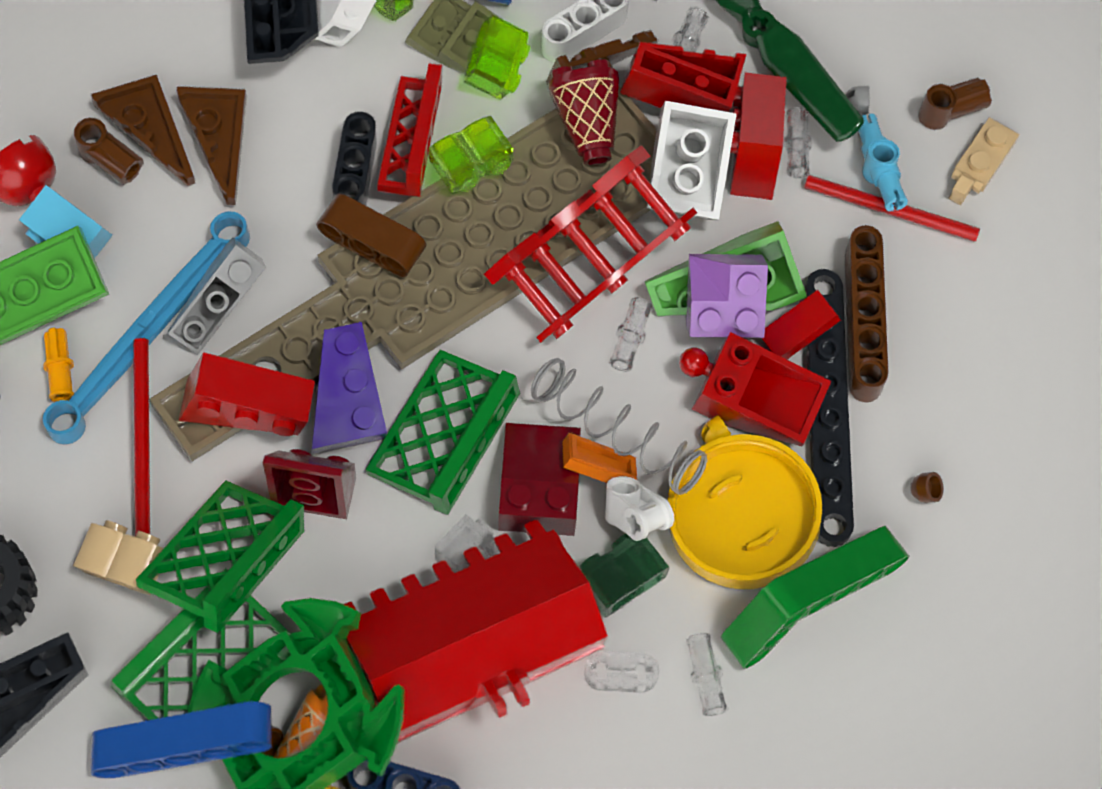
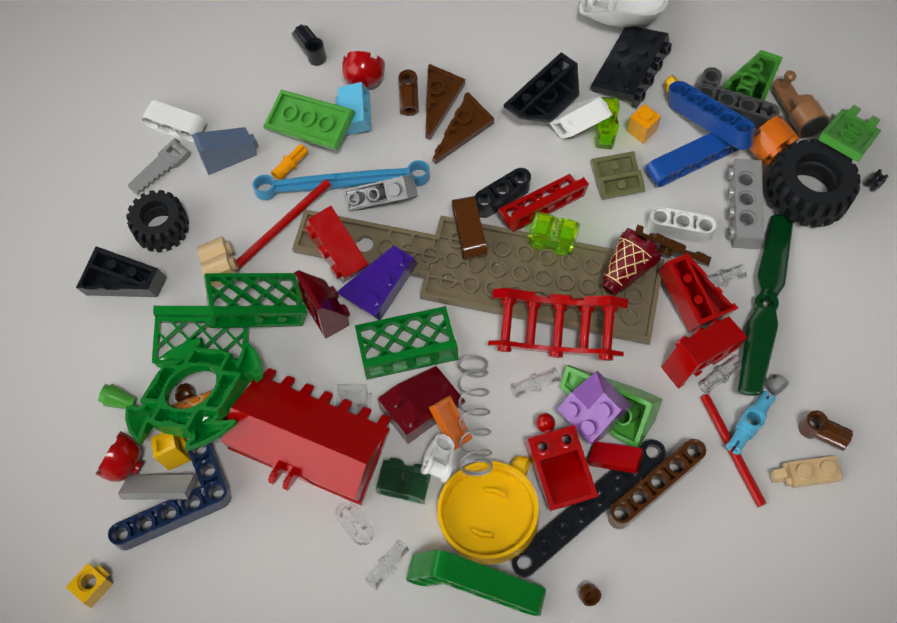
camera: 55 degrees right, 0 degrees up
(181, 740) = (147, 357): blue beam -> none
(497, 57) = (620, 203): clear neon green brick -> none
(692, 158) = (650, 330): white slope -> none

